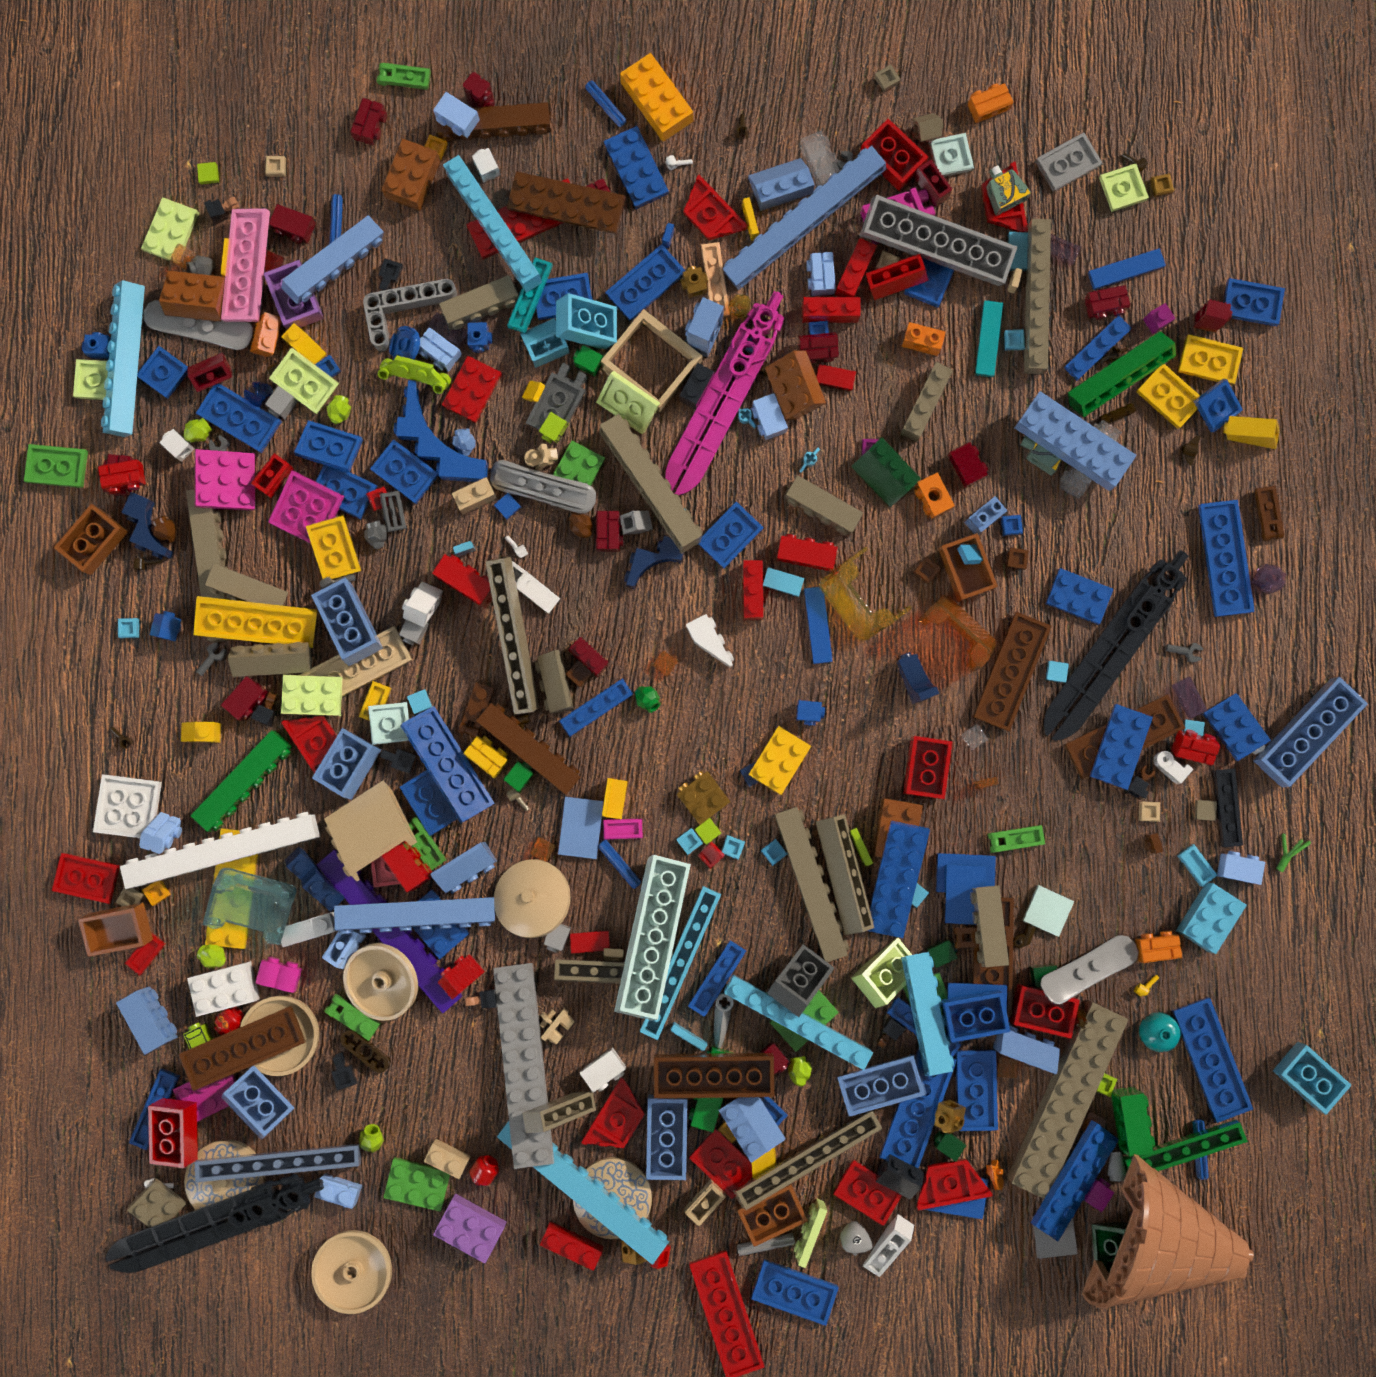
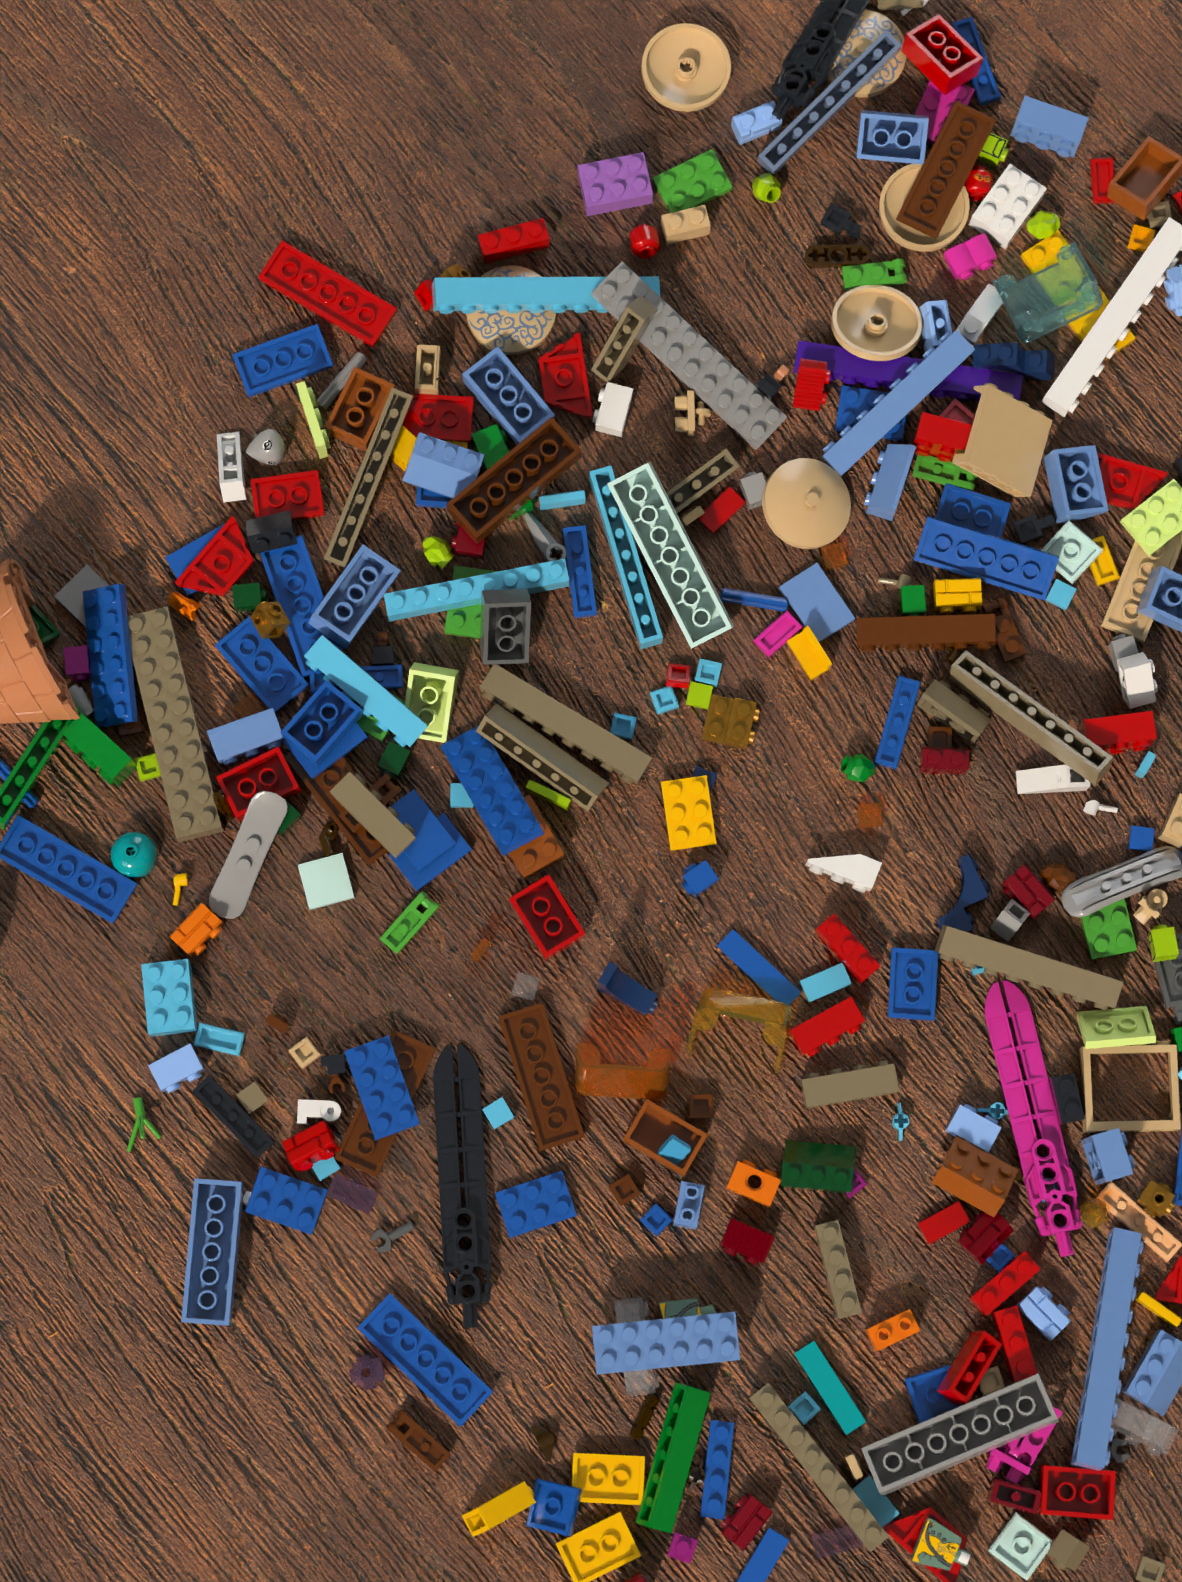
camera: 140 degrees right, 5 degrees down
(241, 781) = (1154, 393): green brick -> none

